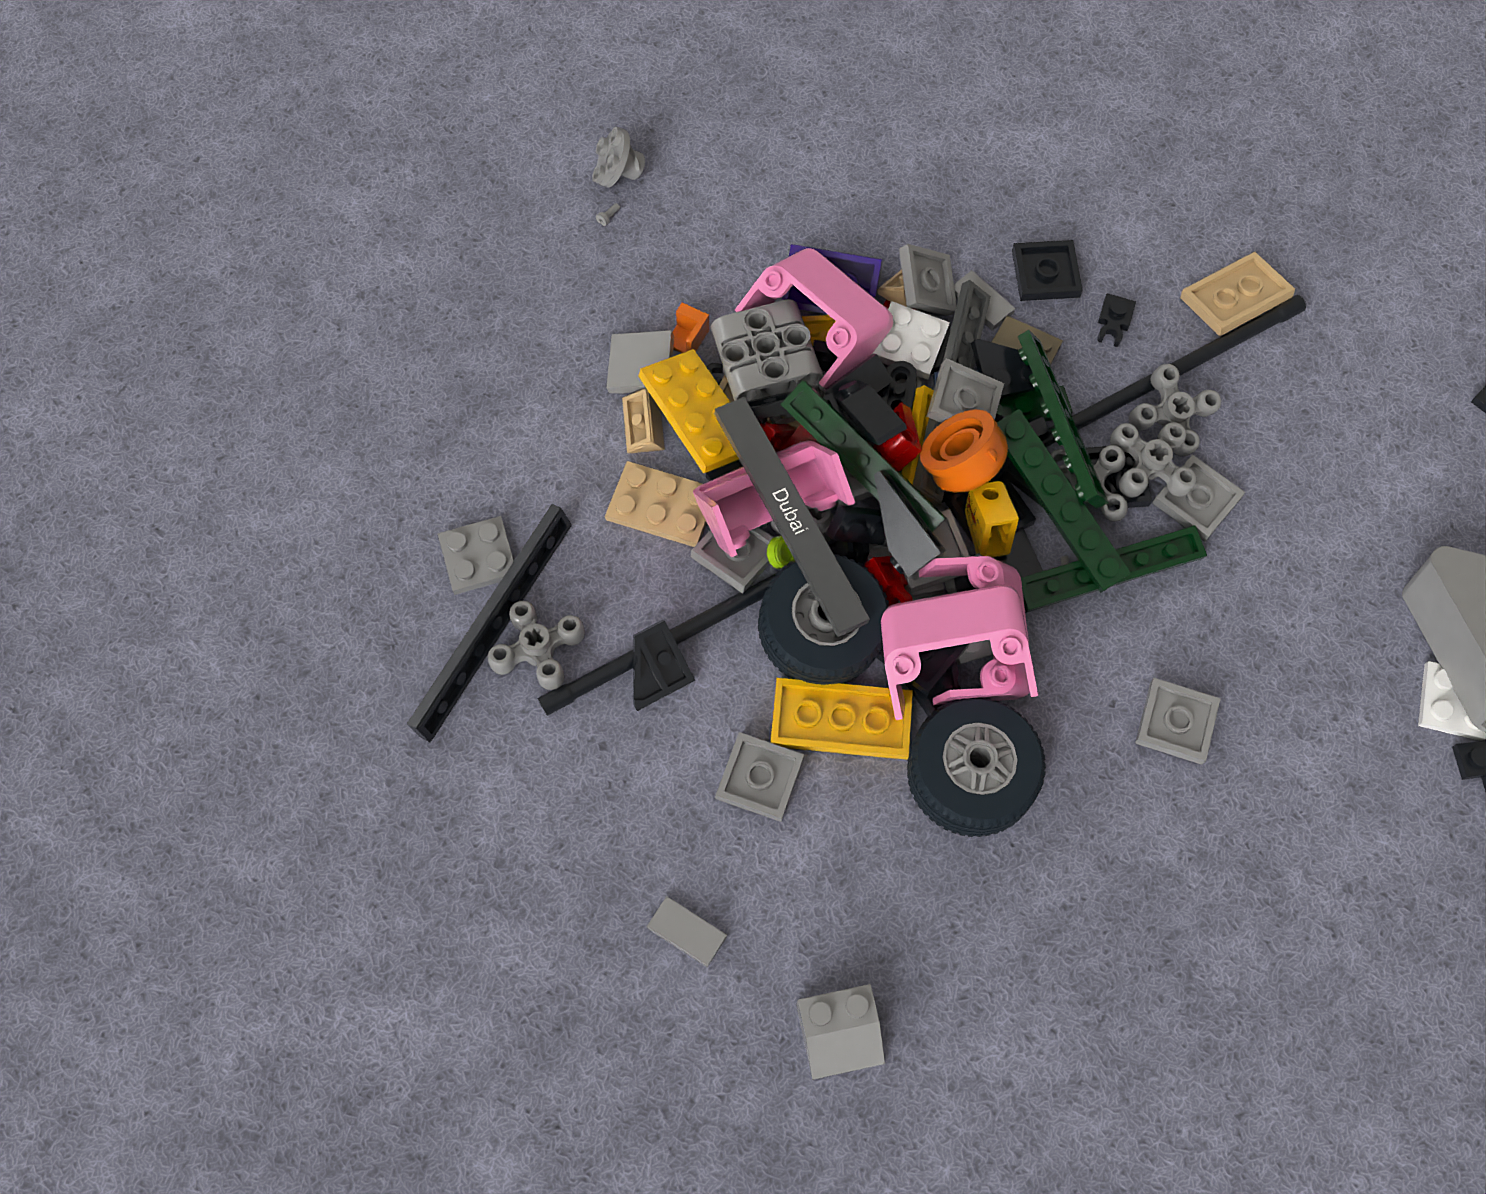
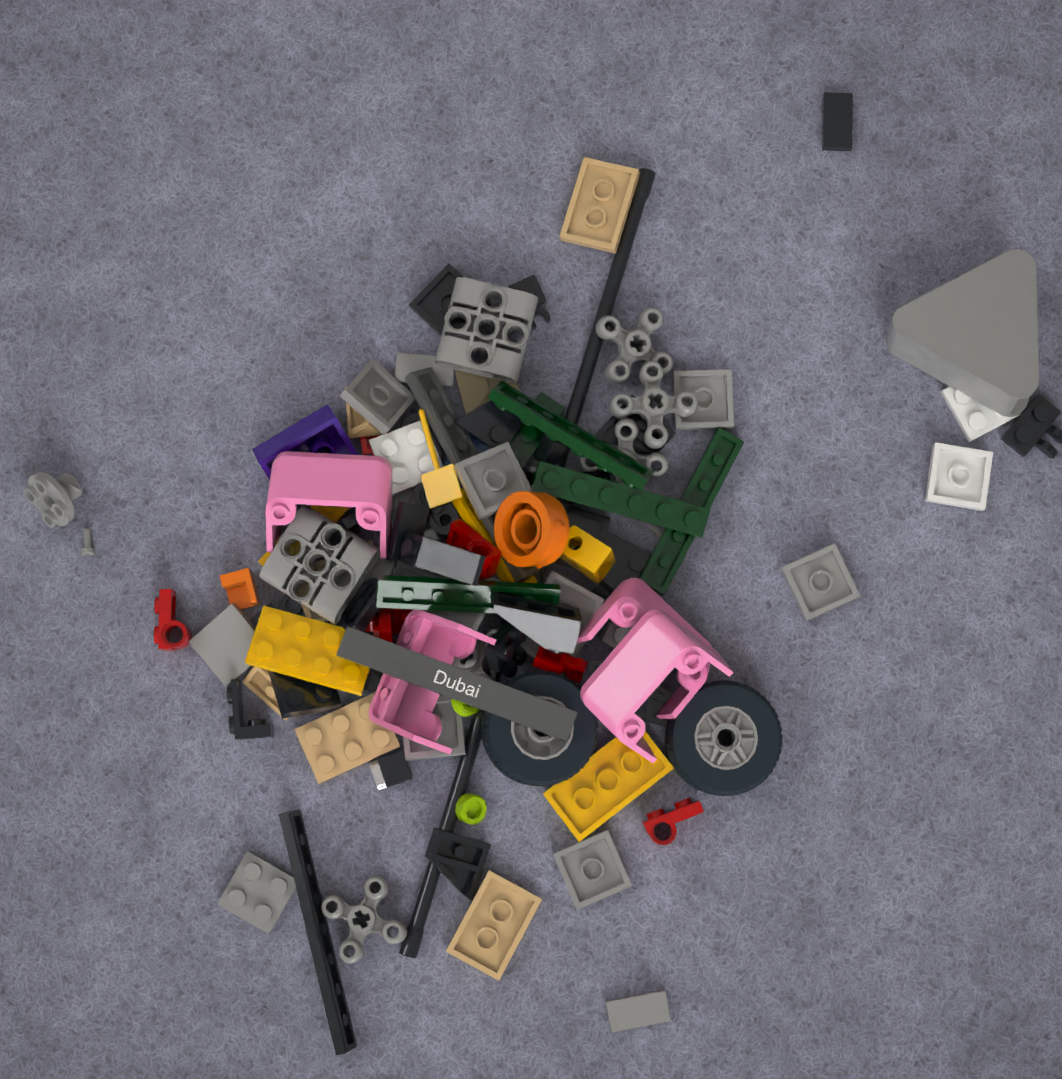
camera: 45 degrees left, 15 degrees up
(588, 420) = (255, 728): none -> black bracket
(610, 307) = (166, 608): none -> red plate
(635, 746) = (494, 925): none -> tan plate
(658, 439) = (302, 697): none -> black wing
(670, 556) = (390, 770): none -> black piece
(706, 639) = (470, 808): none -> lime tile
(841, 1031) = (786, 983): light grey slope -> none
(883, 798) = (684, 810): none -> red plate
(922, 372) = (442, 483): none -> yellow piece
(1068, 278) = (513, 315): none -> light grey connector
(1386, 742) = (959, 476): none -> white plate

